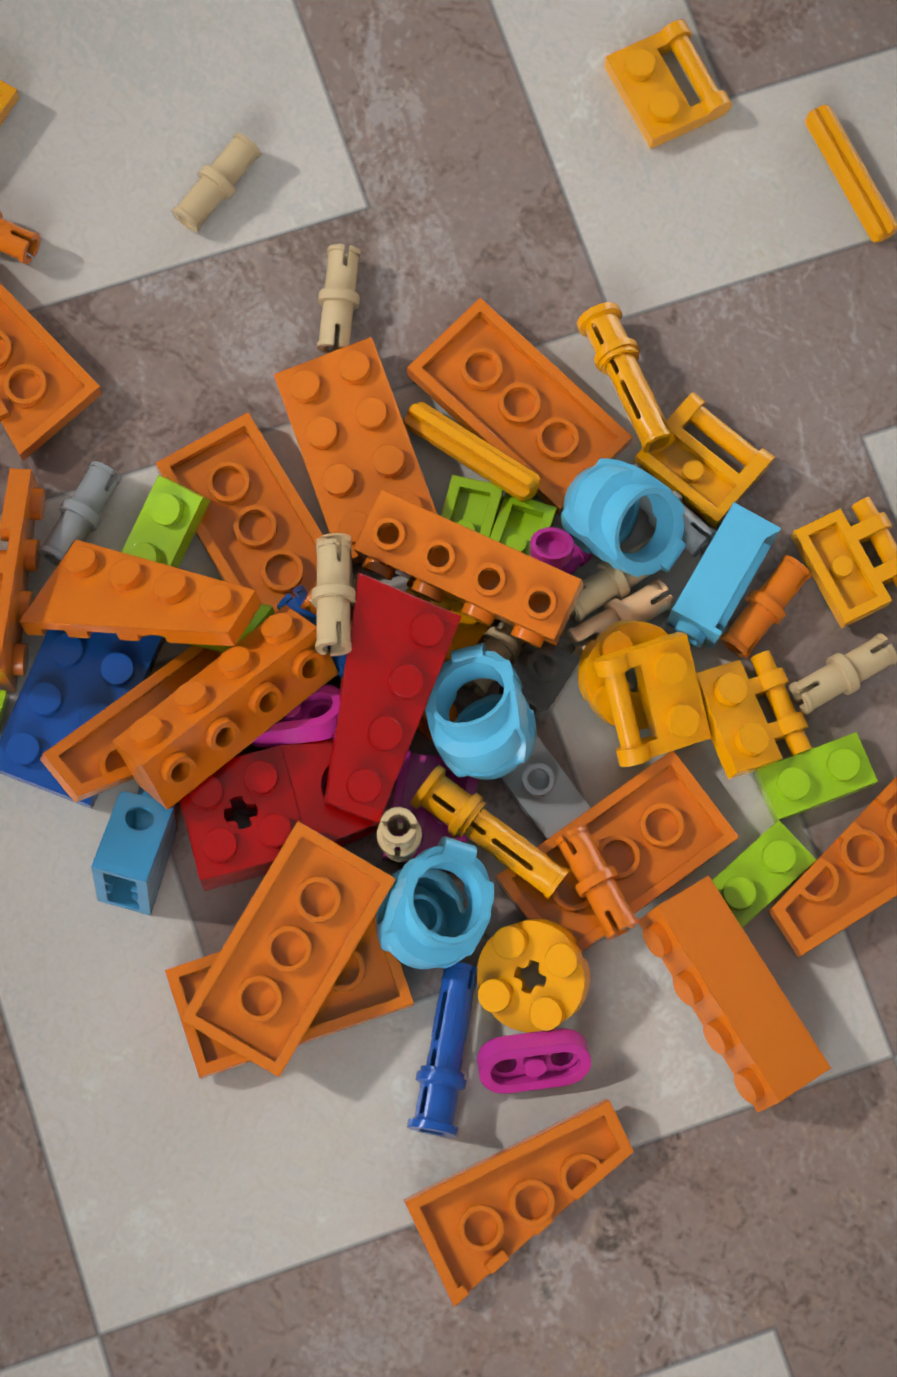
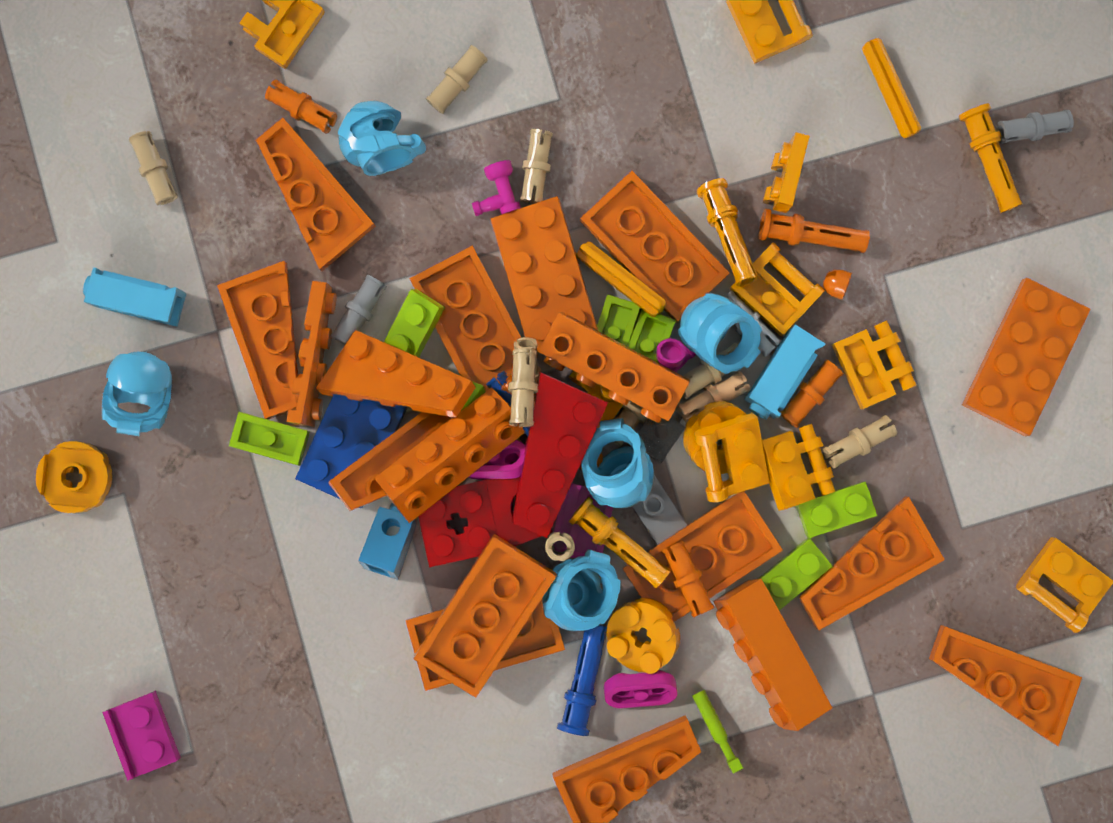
camera: 10 degrees right, 10 degrees up
(89, 254) = (369, 141): none -> medium azure helmet
(283, 309) = (505, 198): none -> dark pink piece
(656, 1119) = (716, 729): none -> lime piece
(710, 277) = (791, 161): none -> light orange plate
(727, 374) = (796, 230): none -> orange pin
(793, 447) = (836, 283): none -> orange hinge

